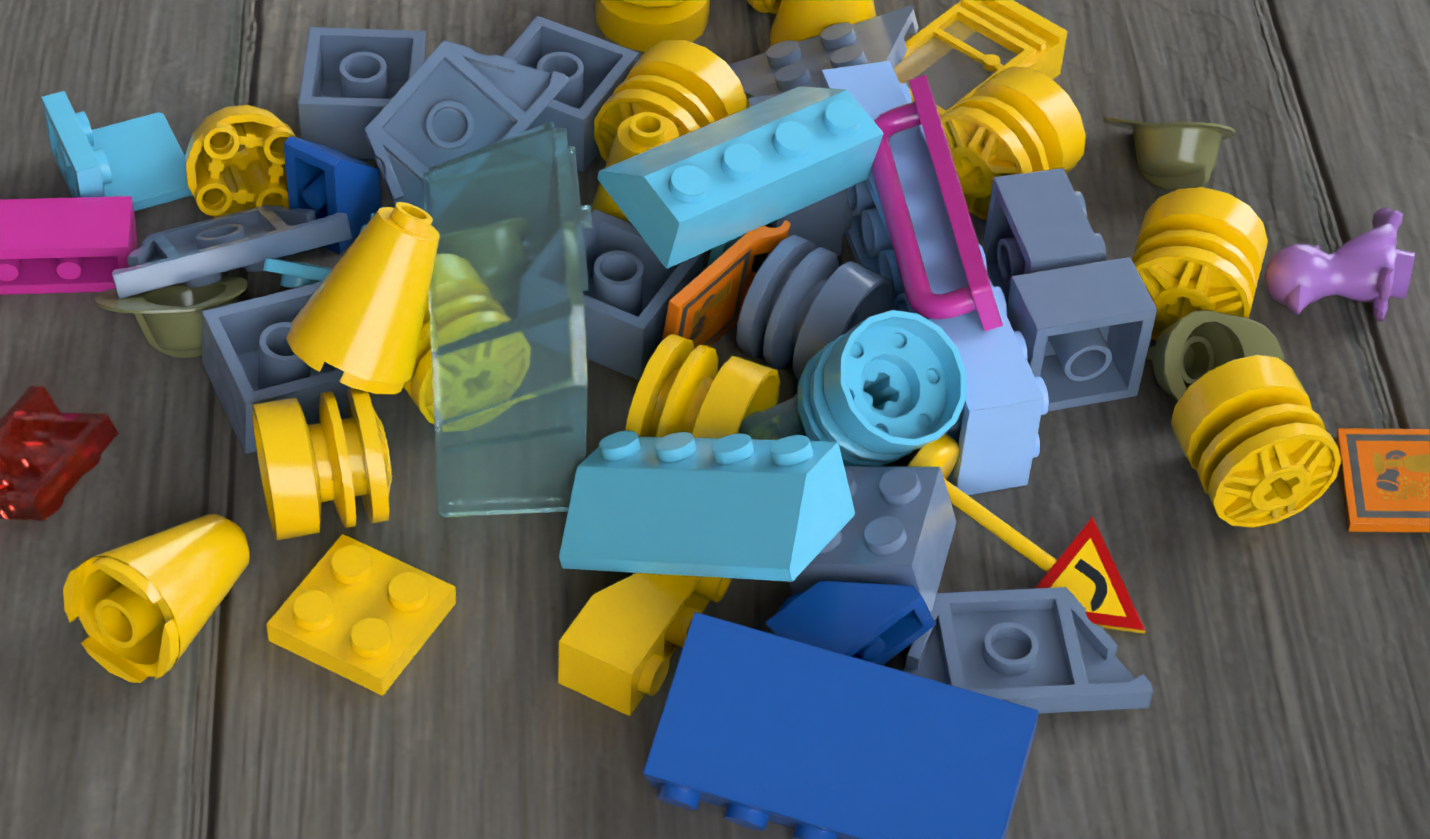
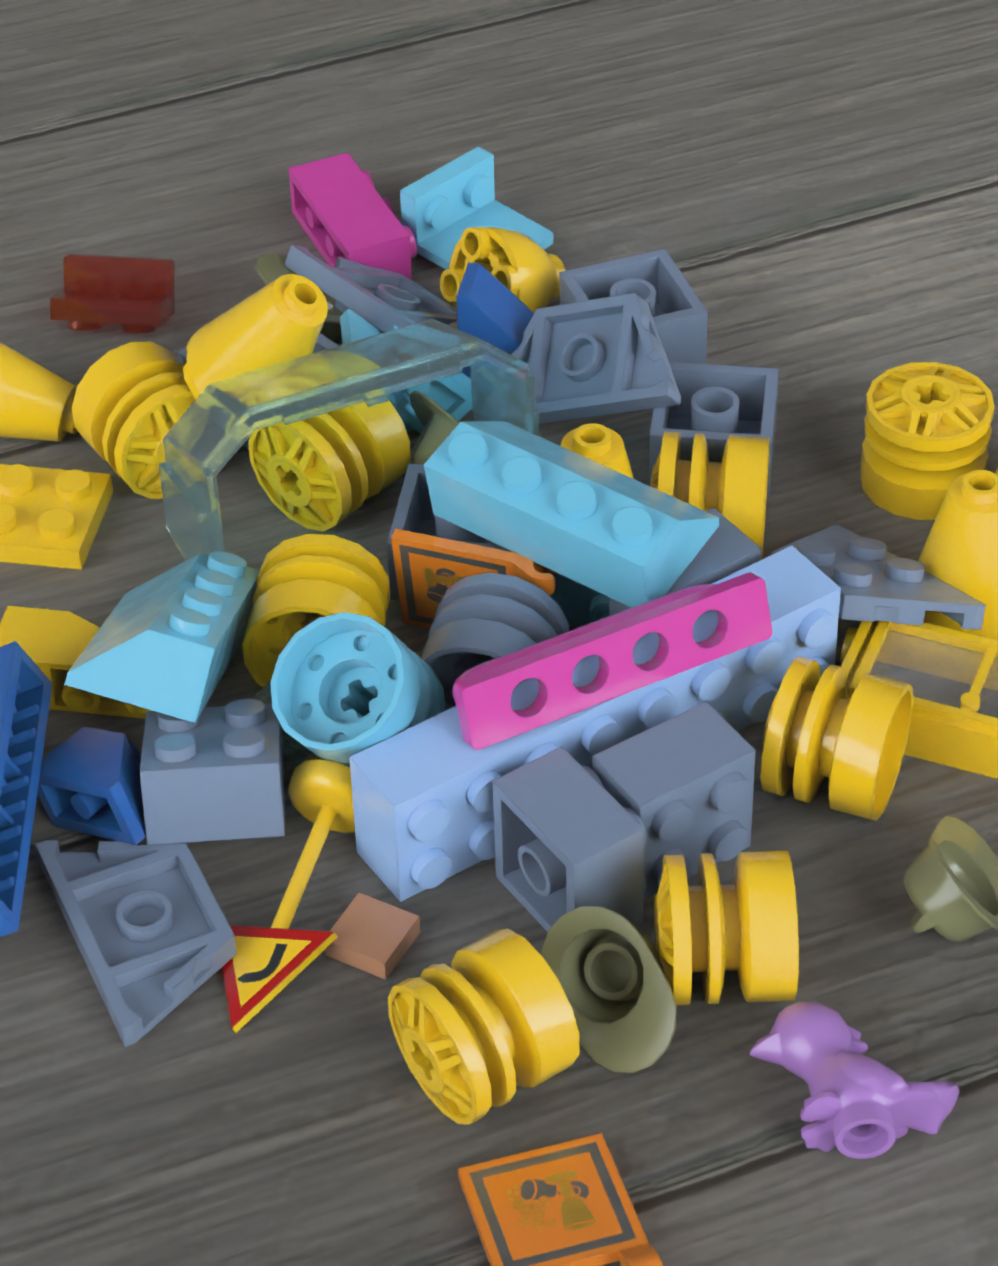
camera: 75 degrees right, 5 degrees down
(1071, 502) = (373, 935): none -> nougat tile

